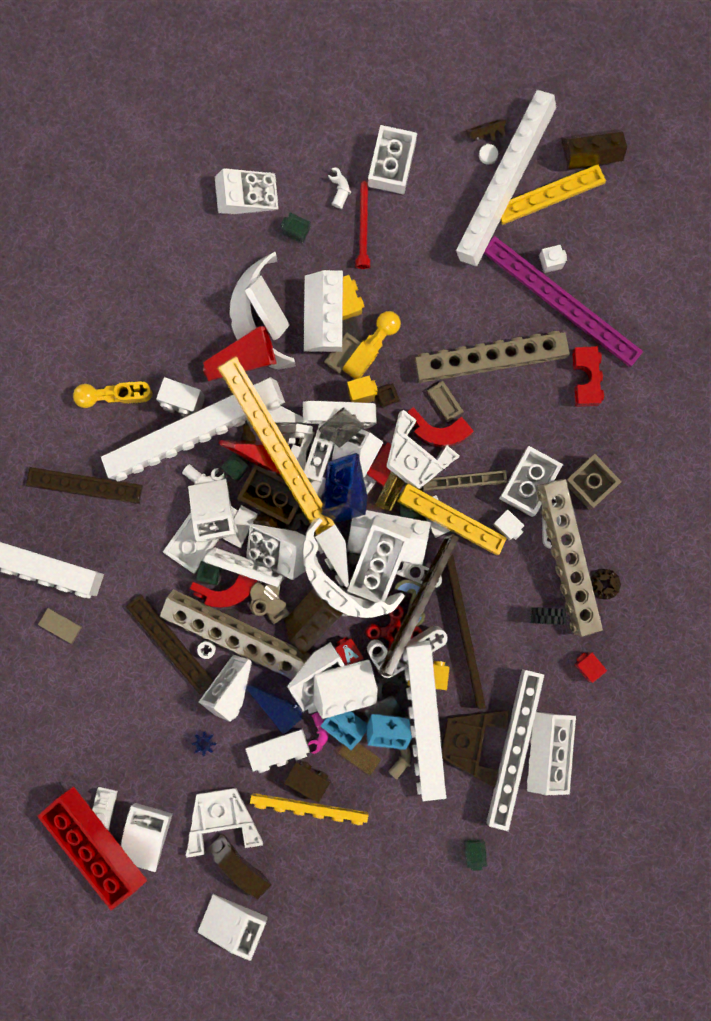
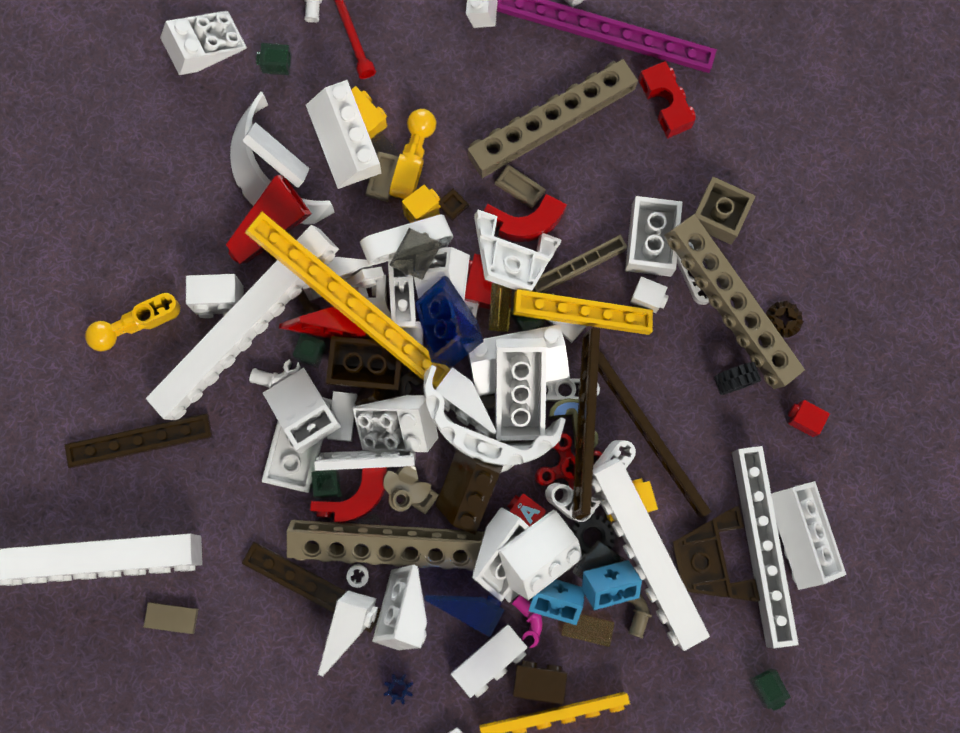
camera: 25 degrees left, 5 degrees down
(190, 678) = (350, 618): none -> white slope

